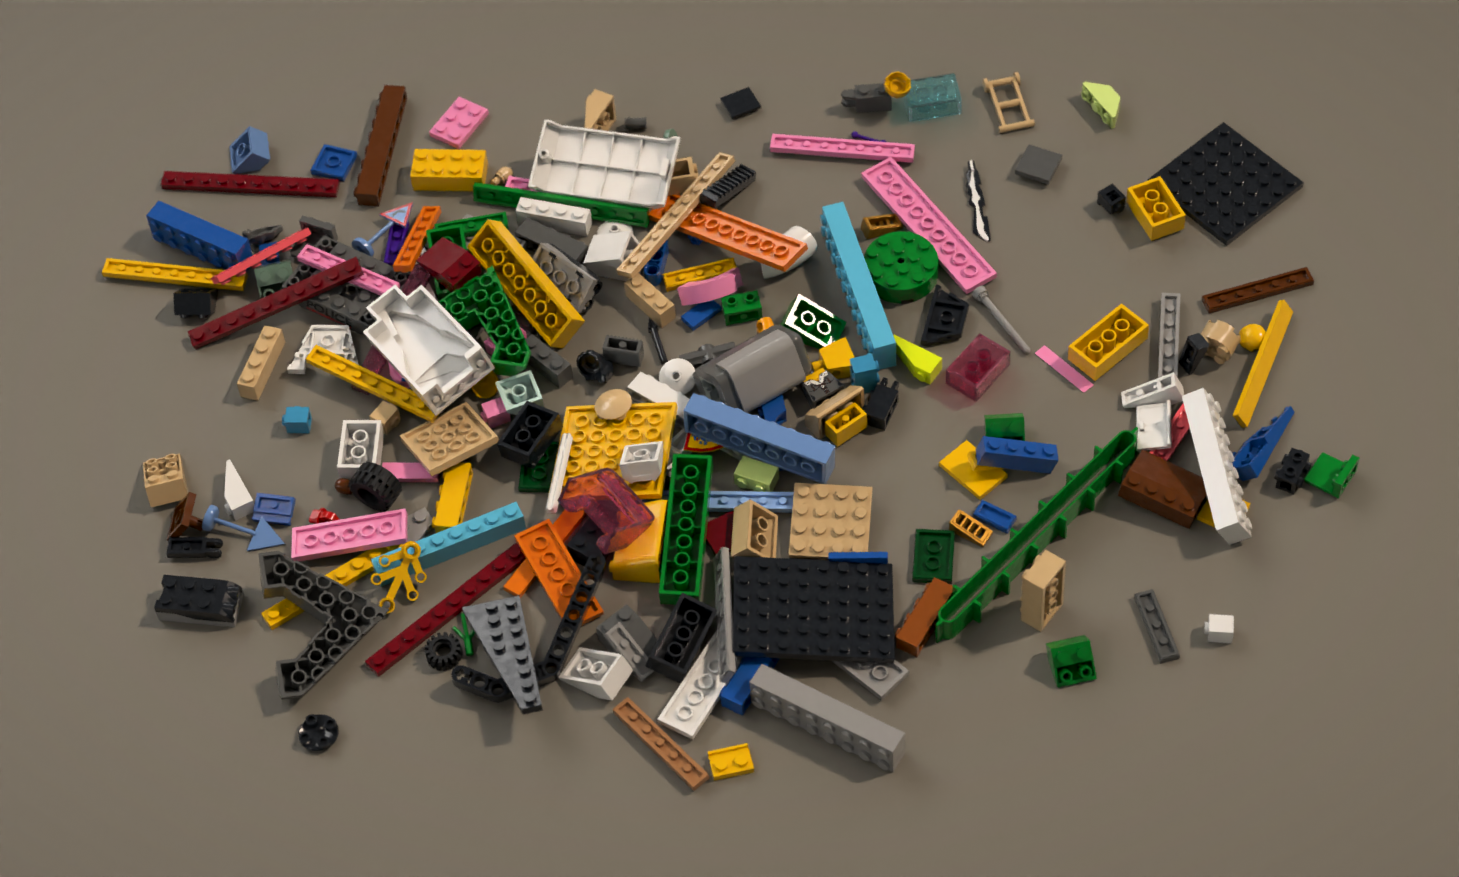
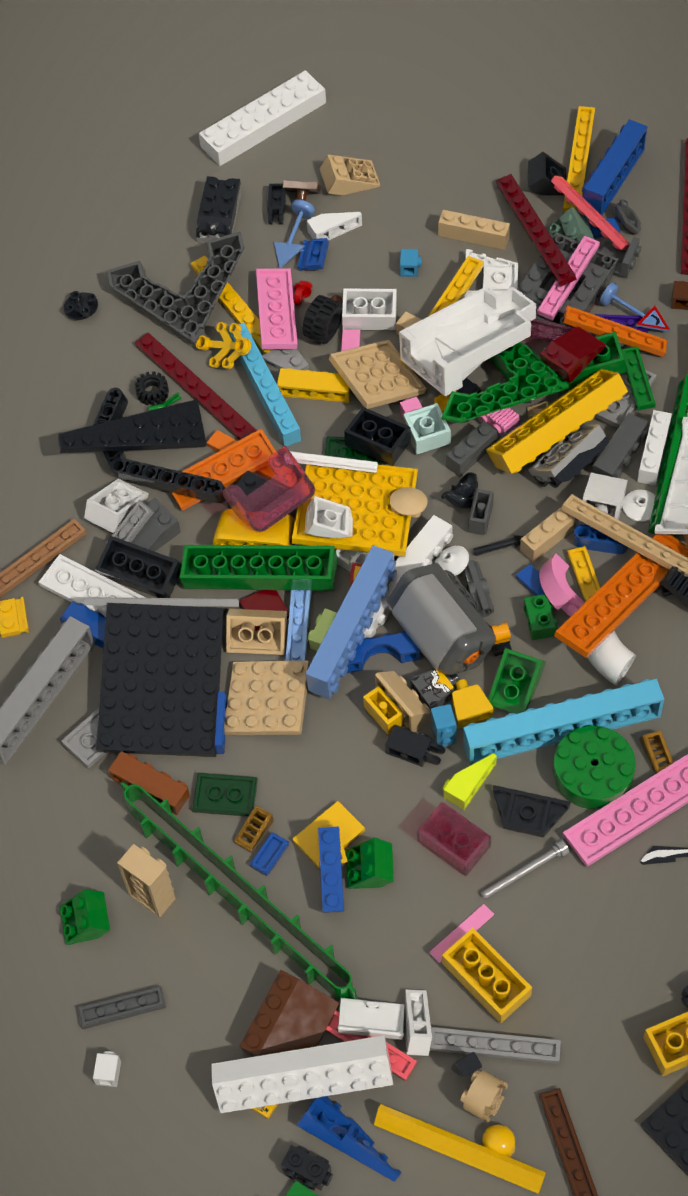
camera: 90 degrees right, 5 degrees up
(66, 565) = (262, 118): none -> white brick

